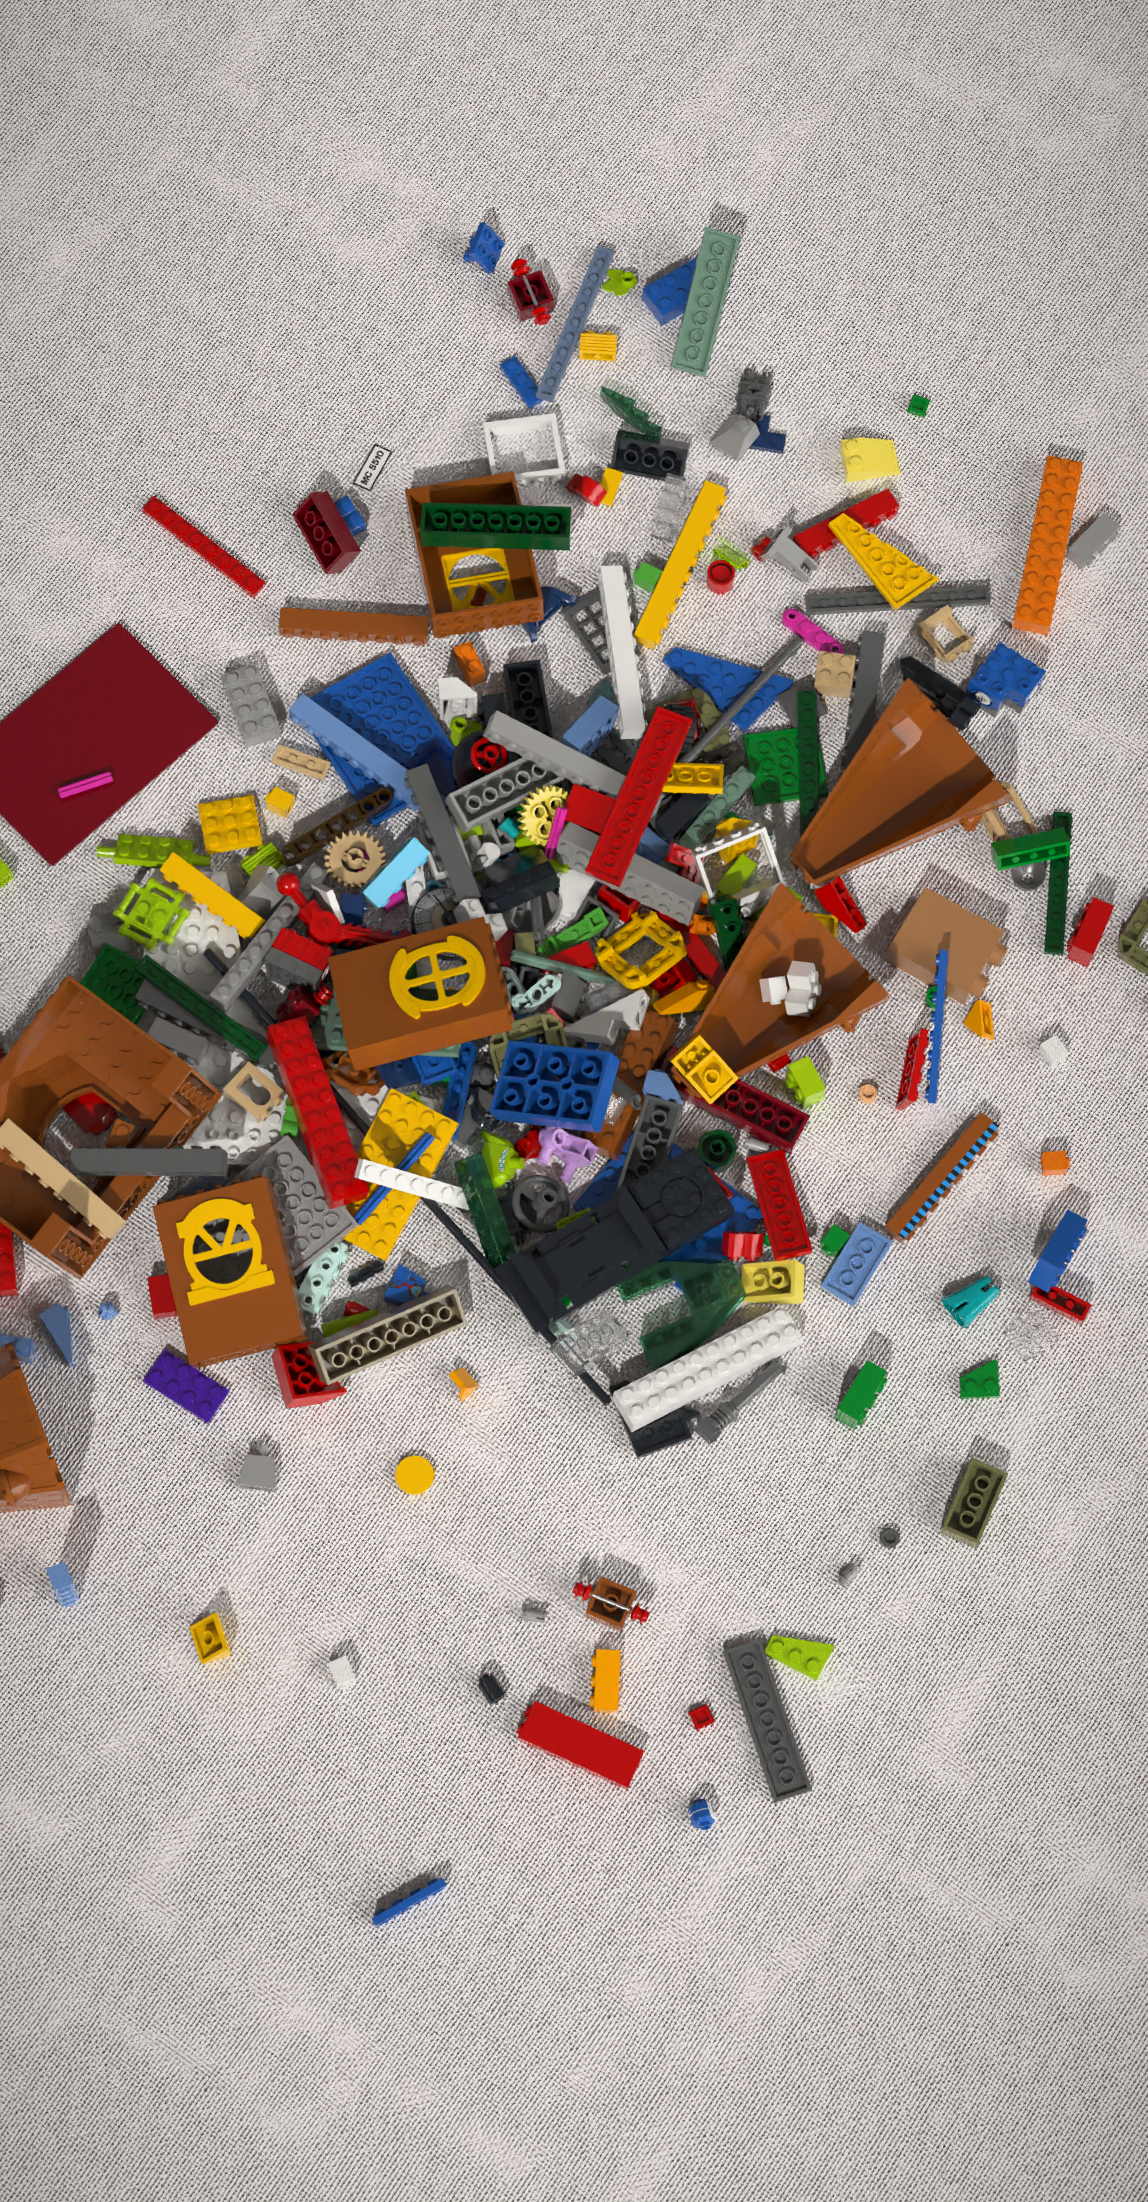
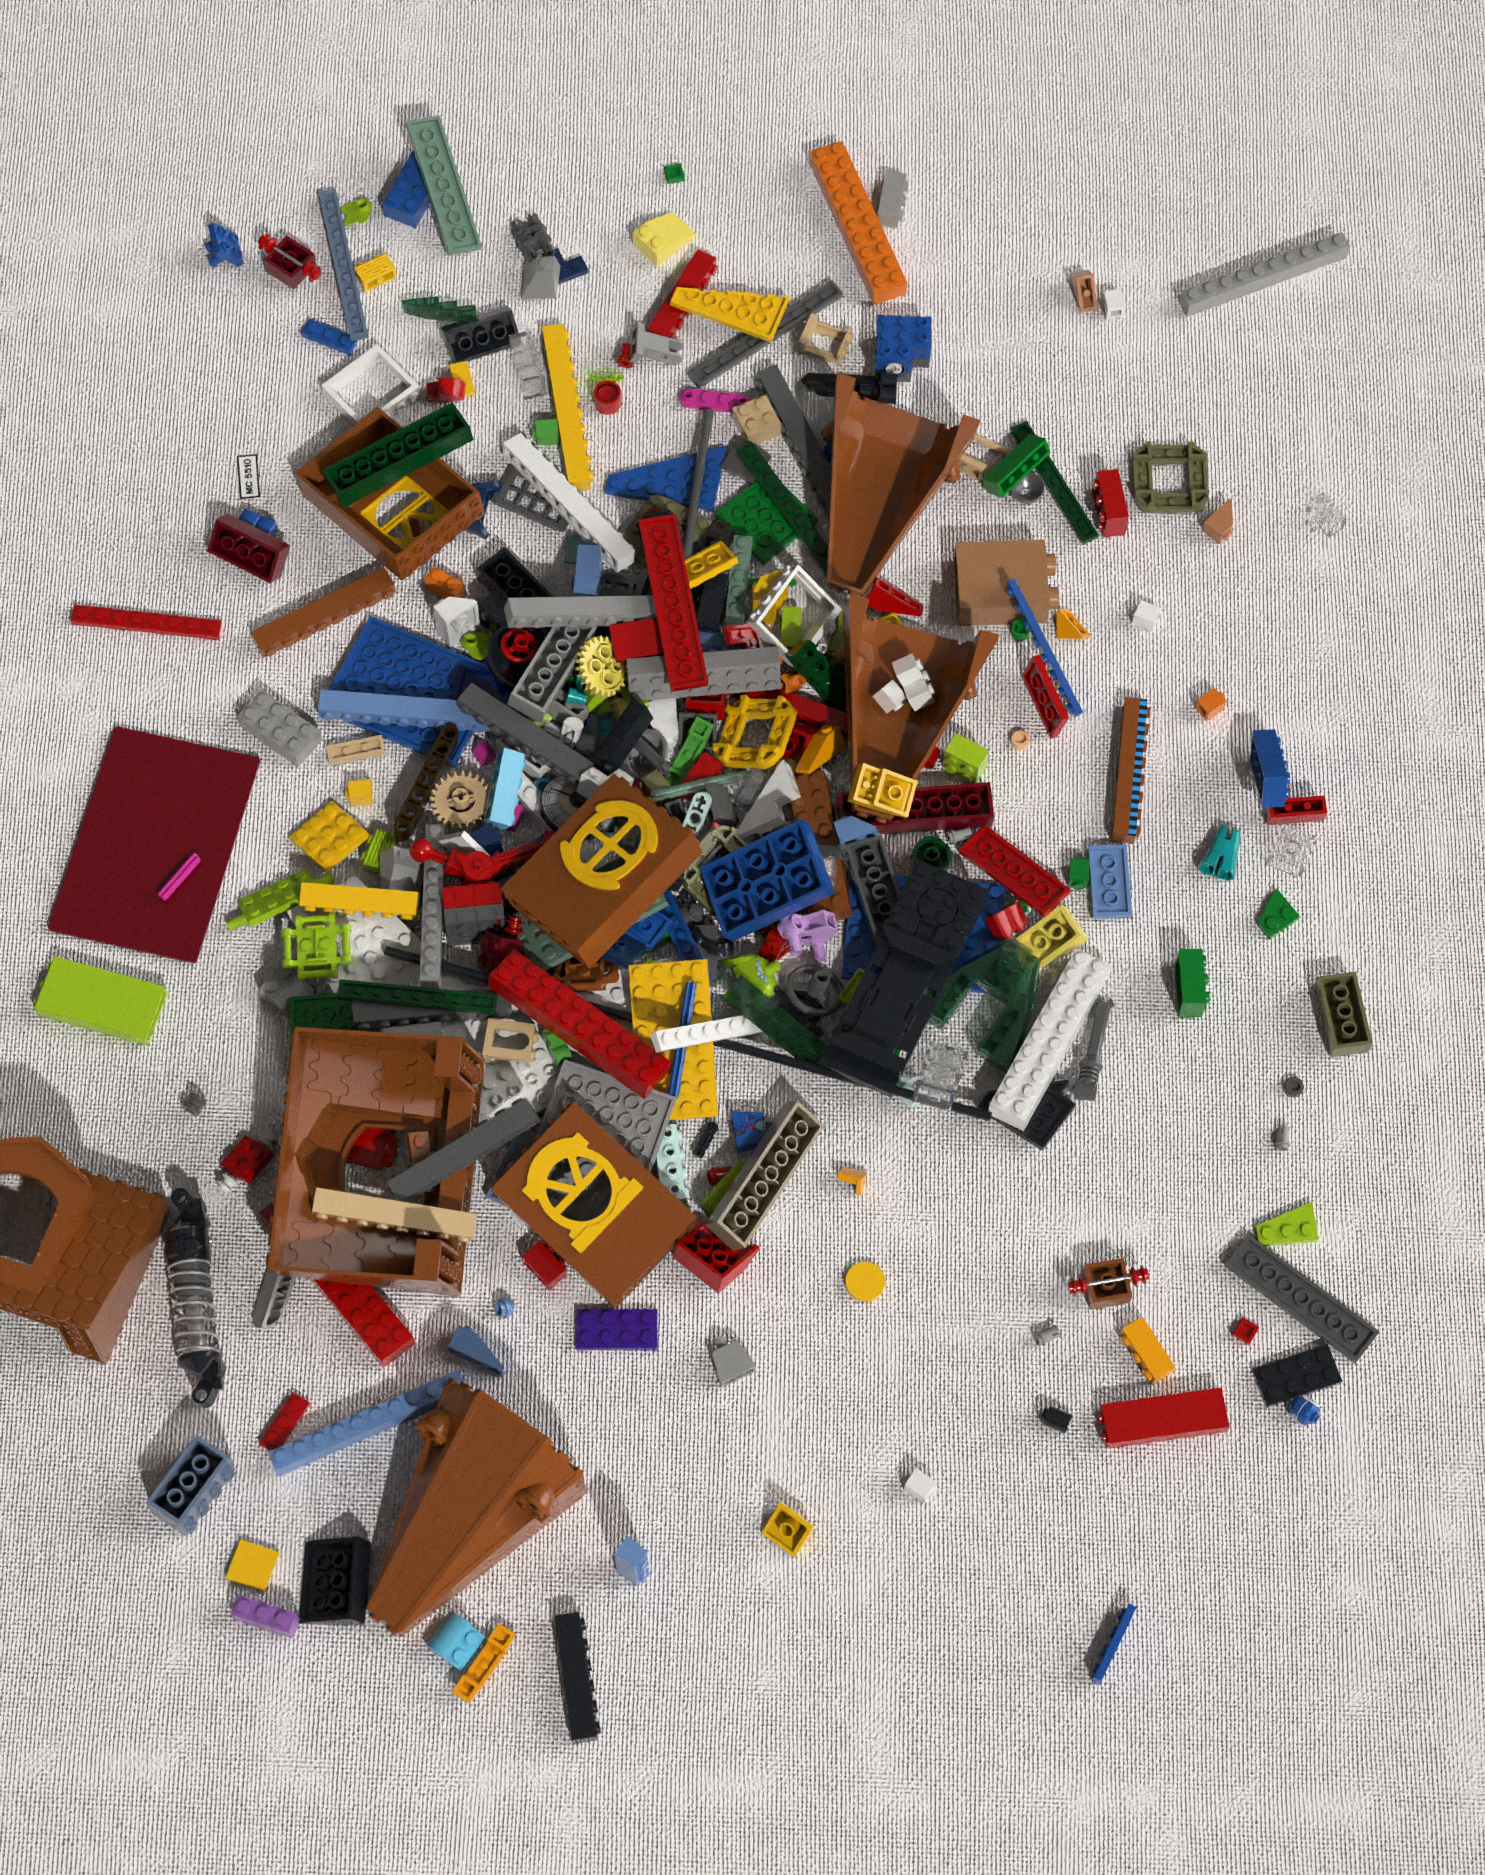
camera: 30 degrees left, 5 degrees down
(405, 829) = (484, 753): none -> dark pink slope
(555, 832) = (619, 674): dark pink axle -> none
(717, 1782) = (1296, 1376): none -> black plate

